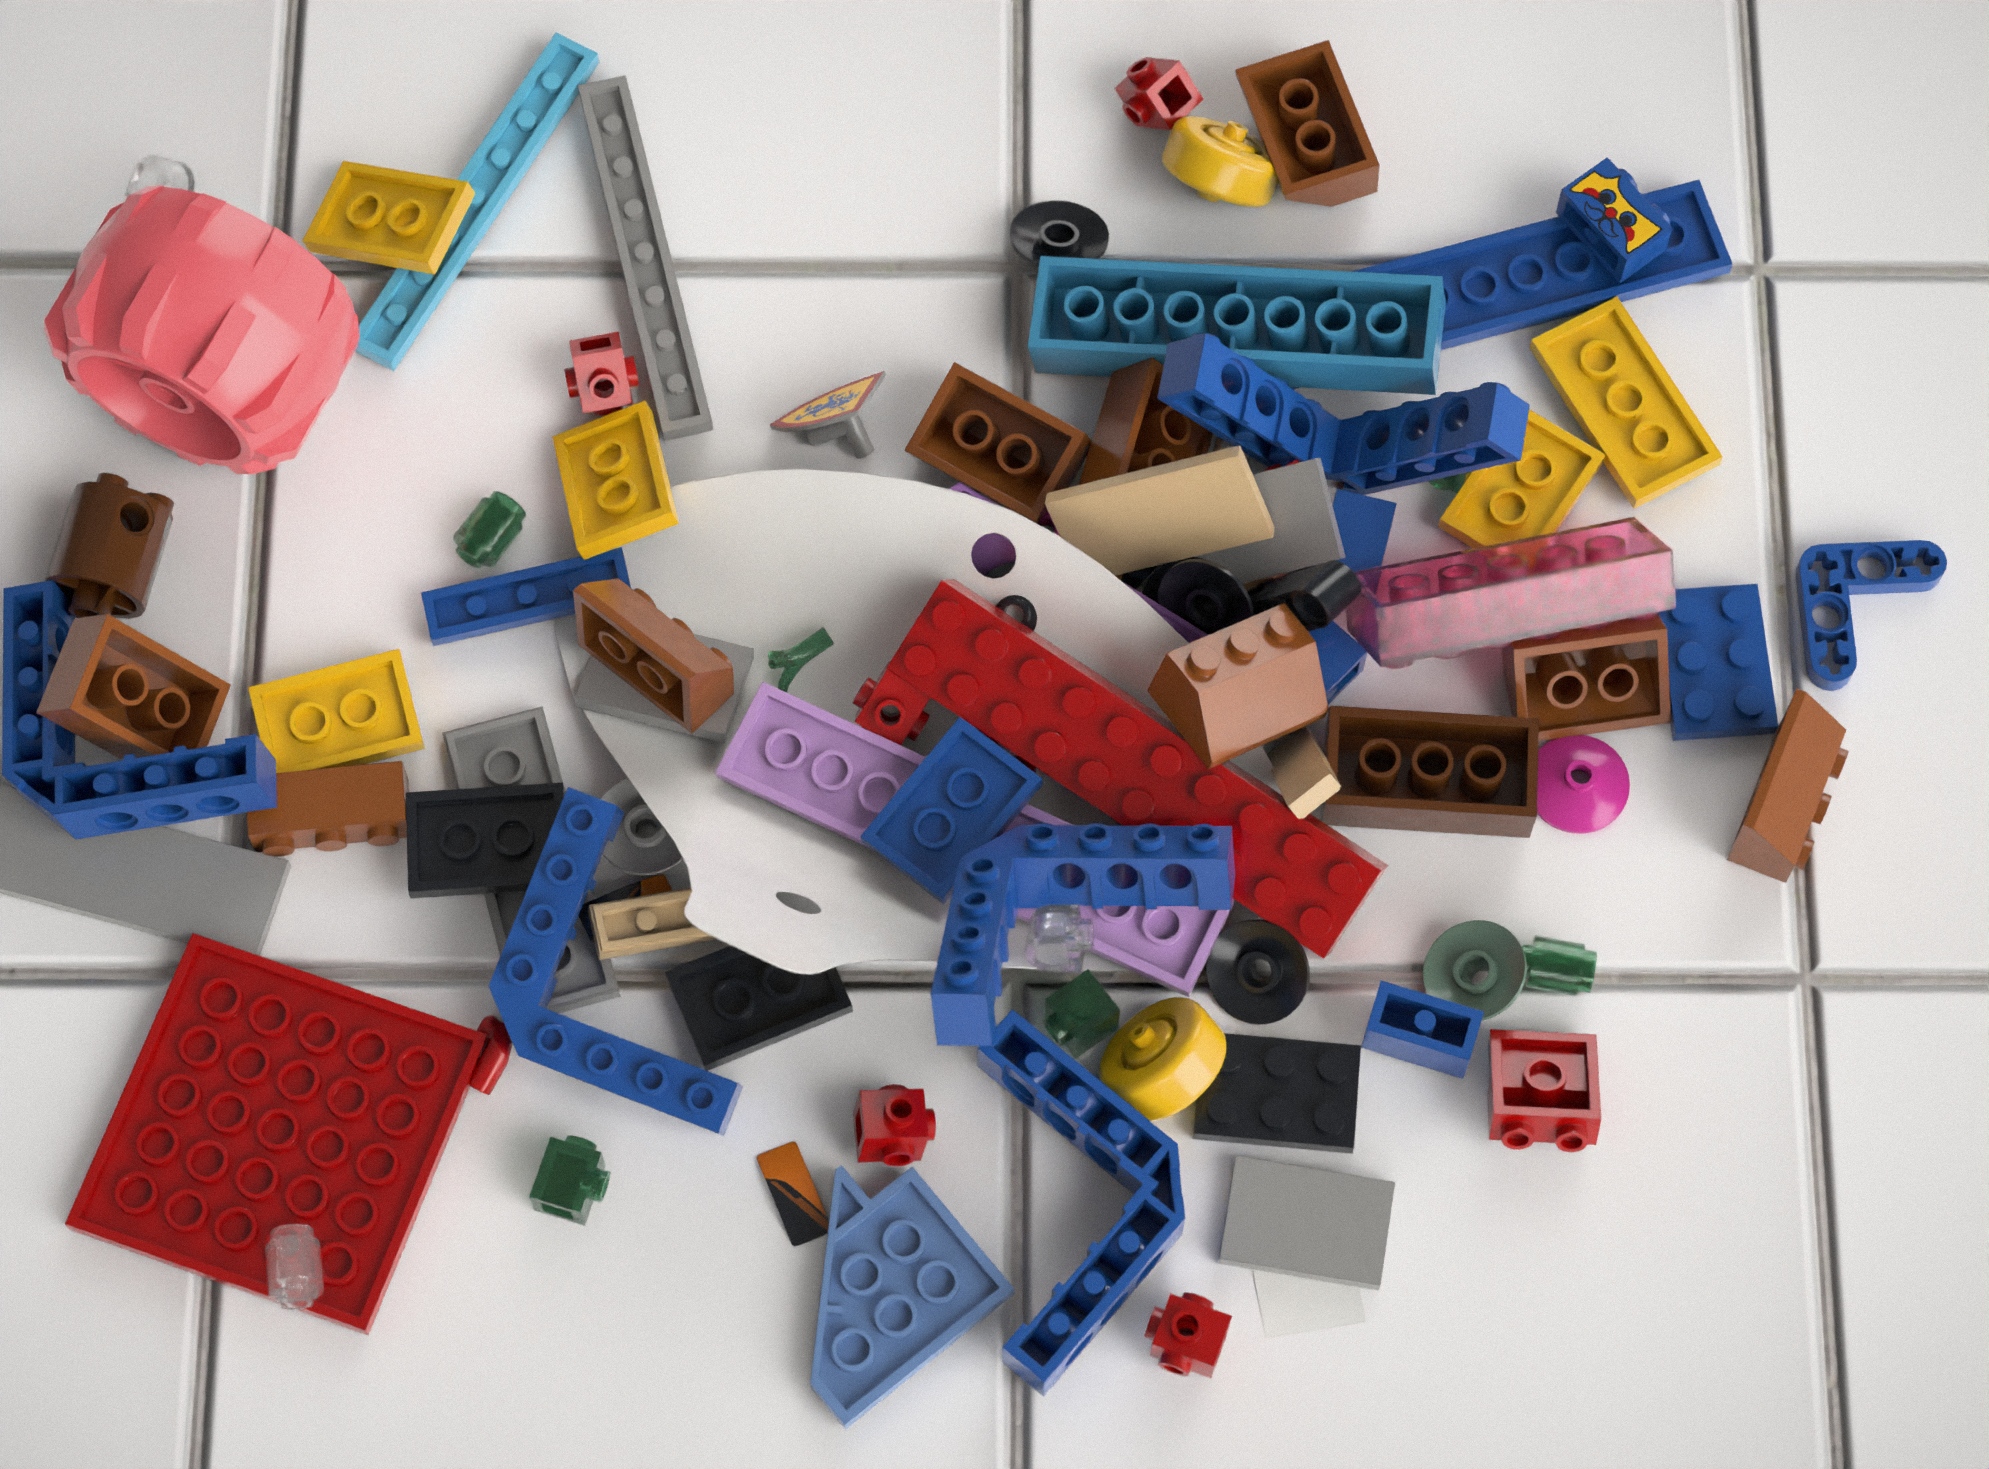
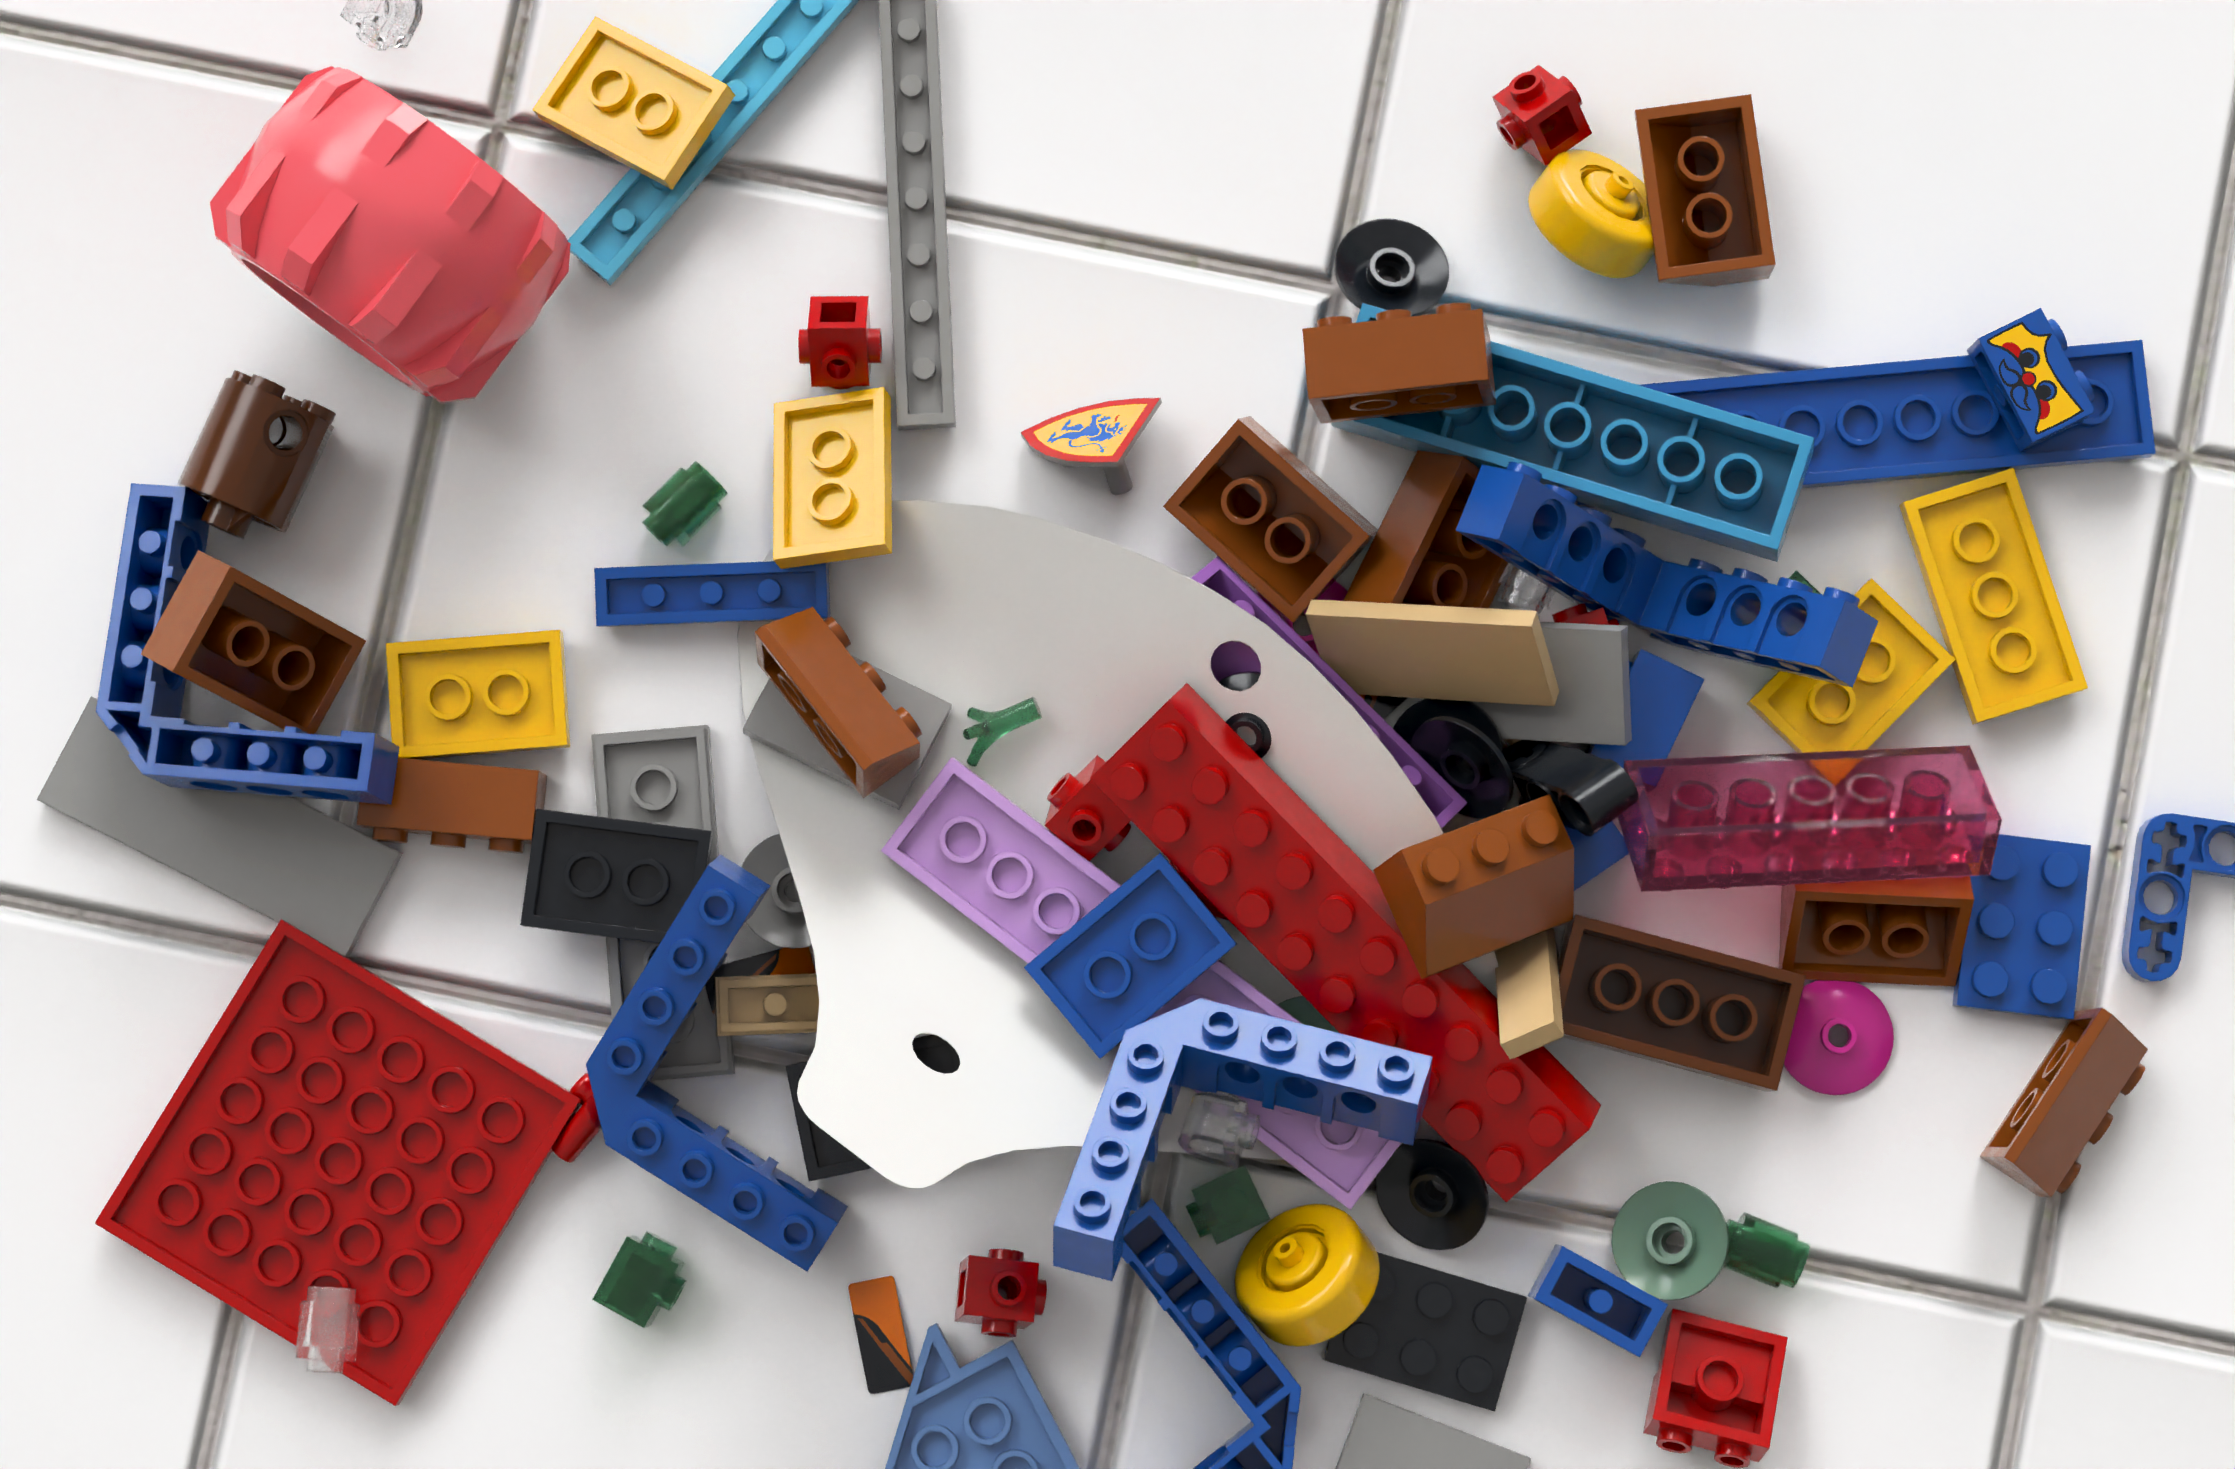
camera: 15 degrees right, 15 degrees up
(1082, 283) = (1399, 364): none -> dark orange brick

